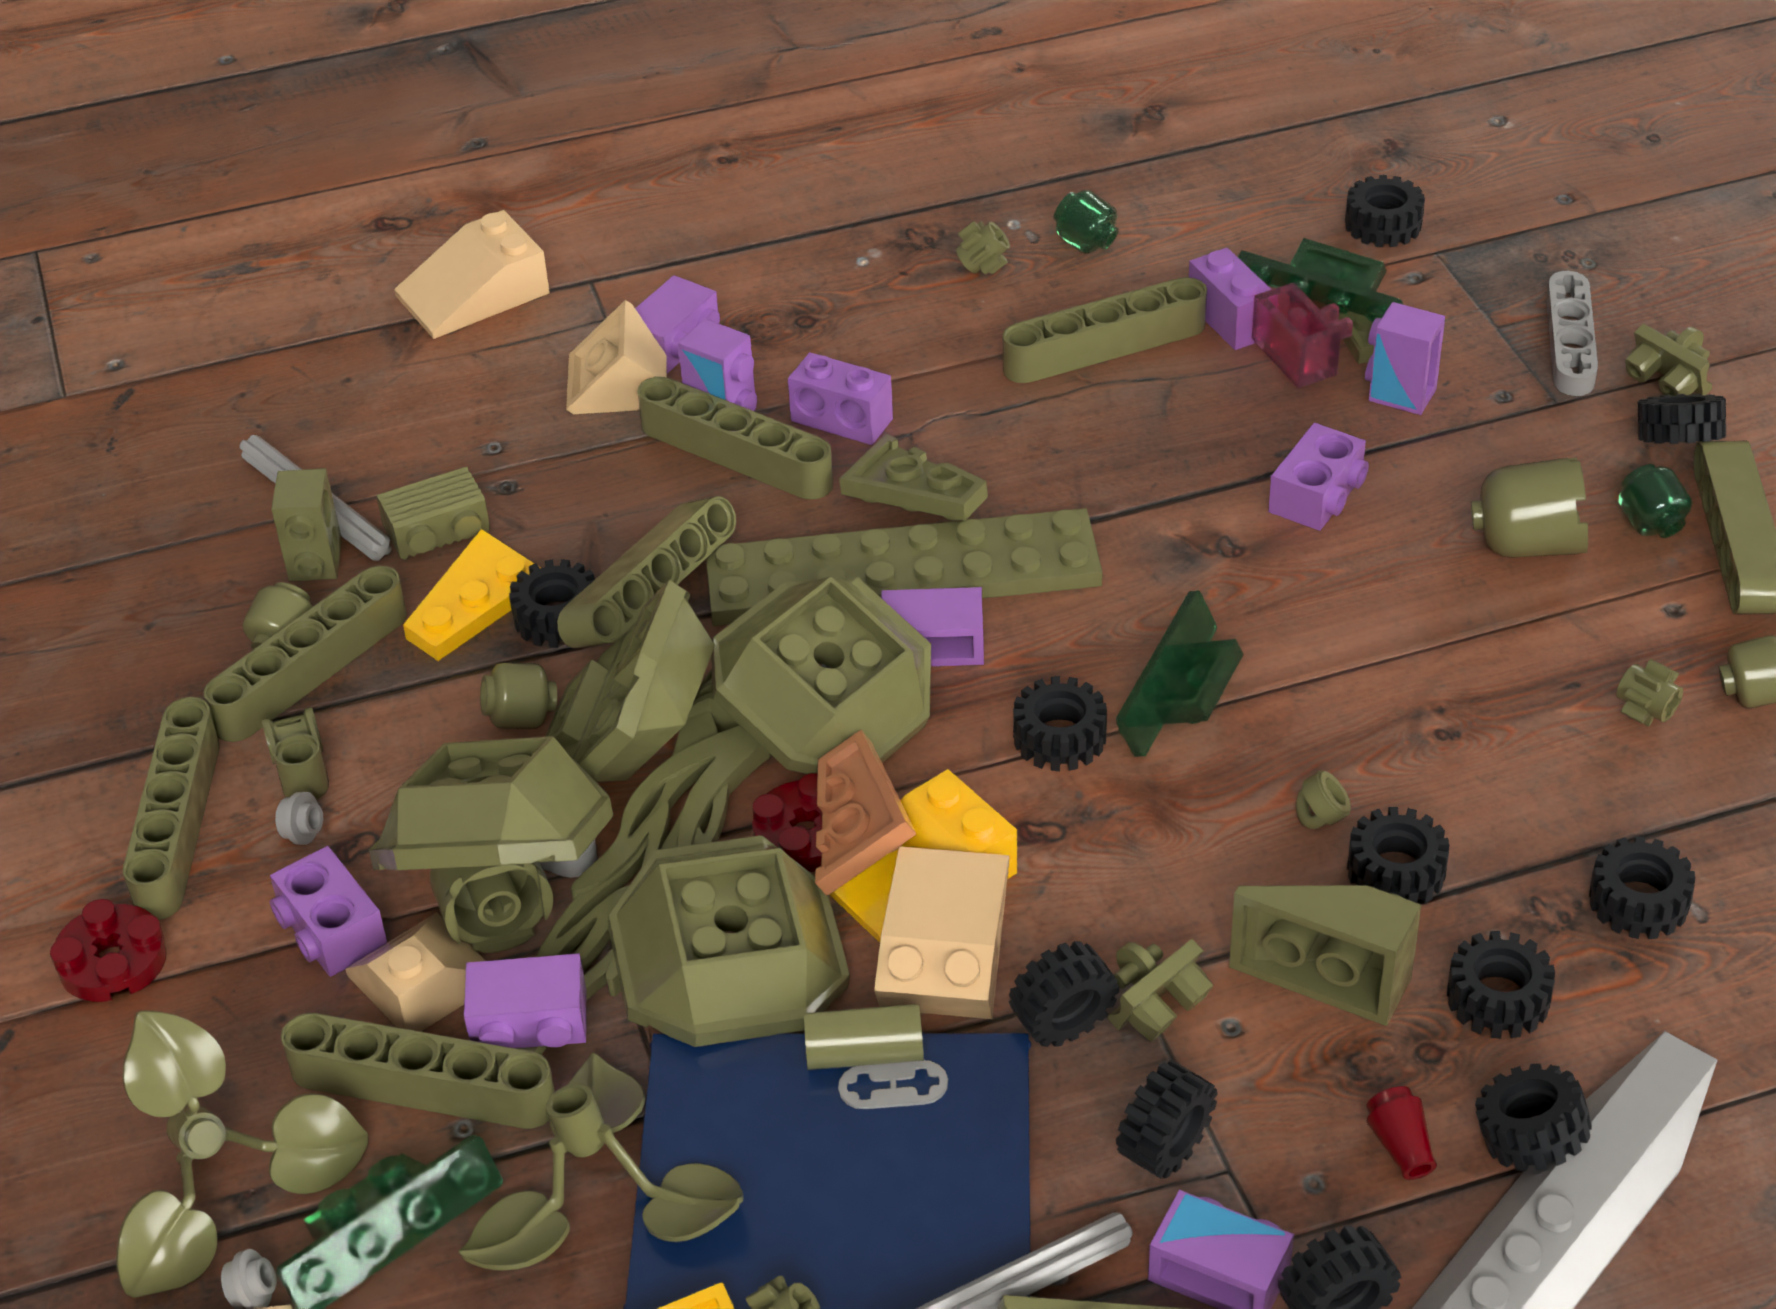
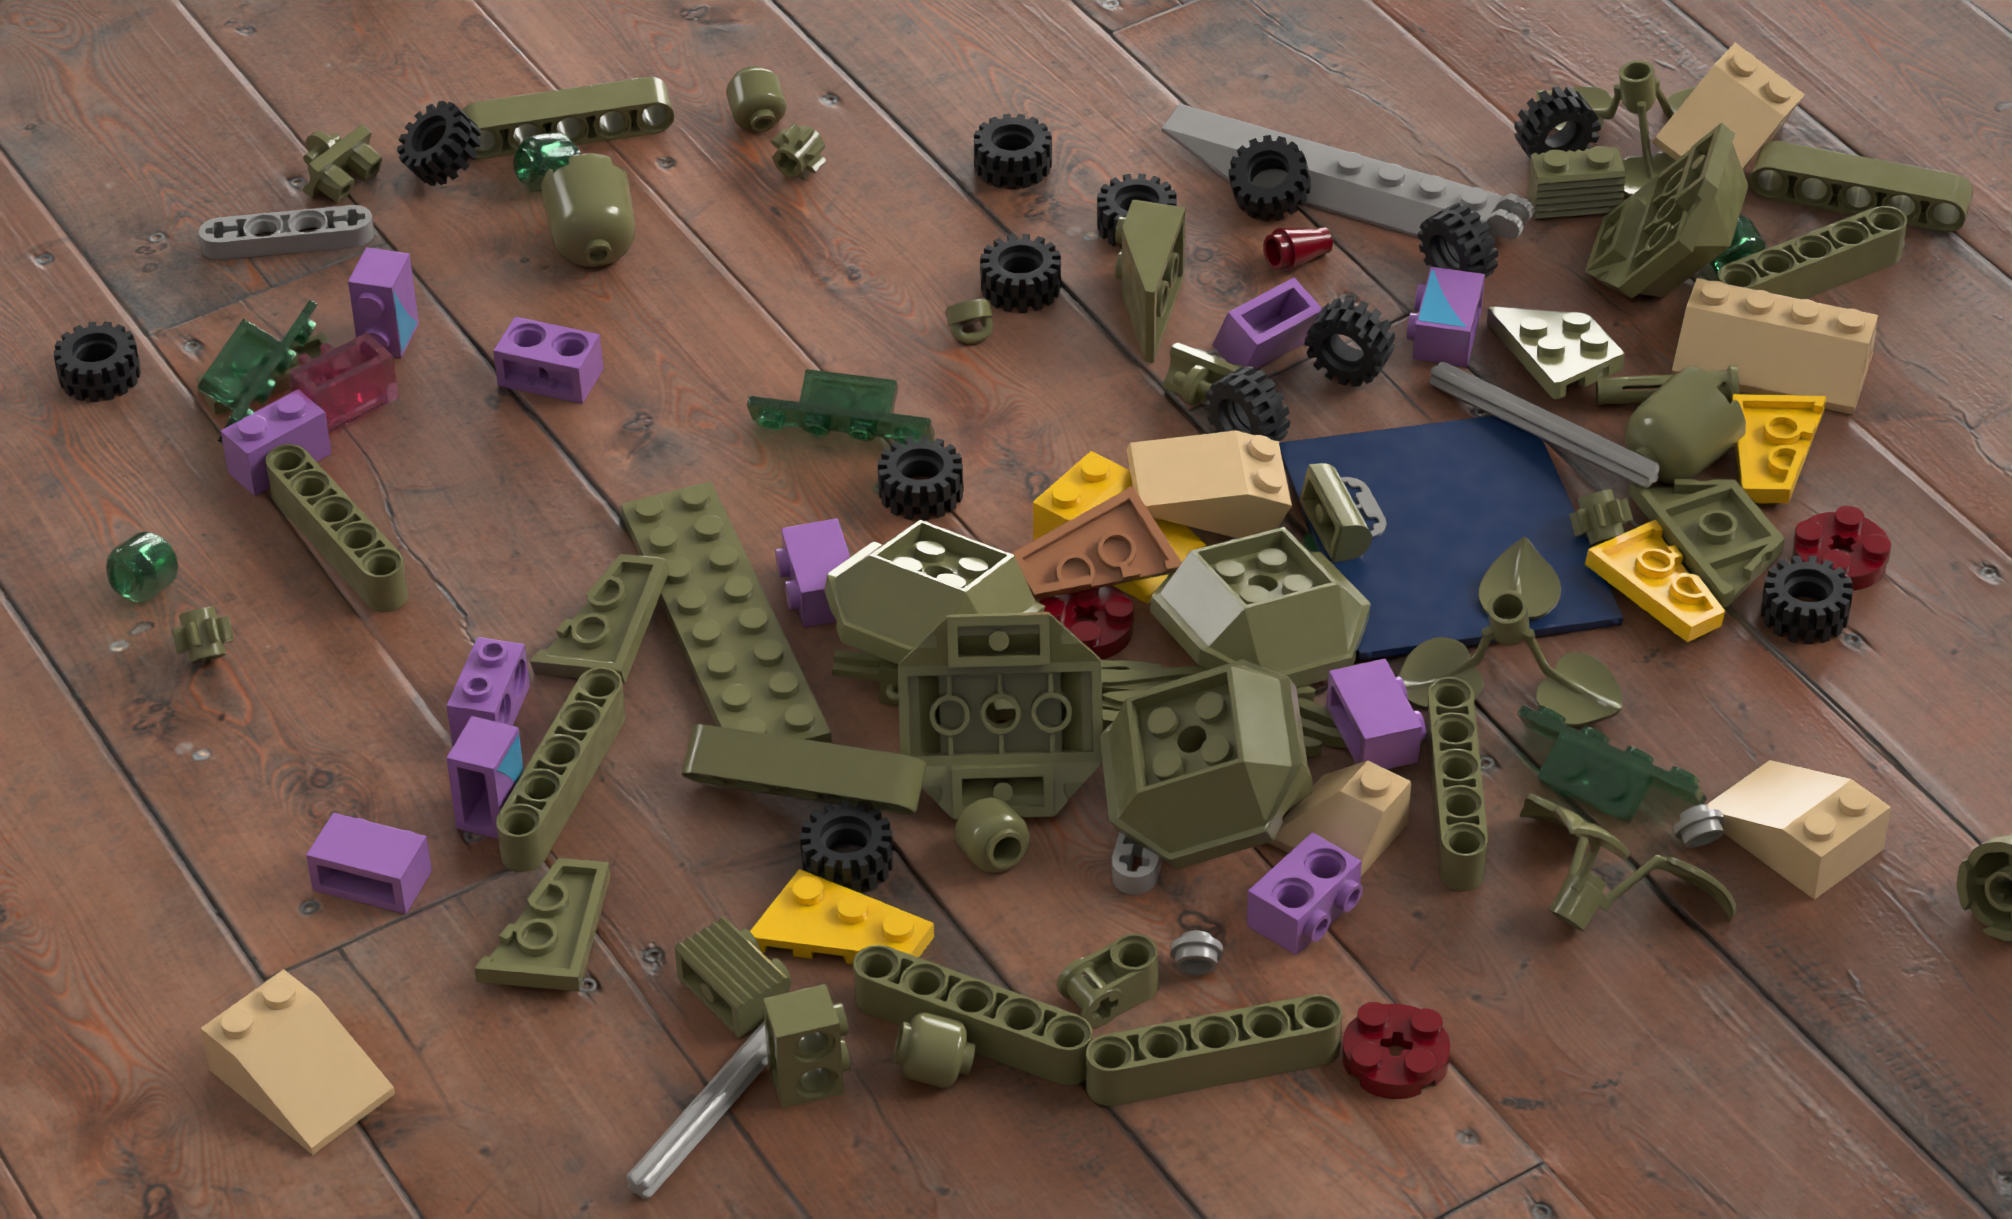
camera: 105 degrees left, 0 degrees up
(546, 422) = (555, 931): none -> olive wing
(613, 364) = (454, 893): tan slope -> none
(1220, 1047) = (1267, 326): none -> medium lavender brick

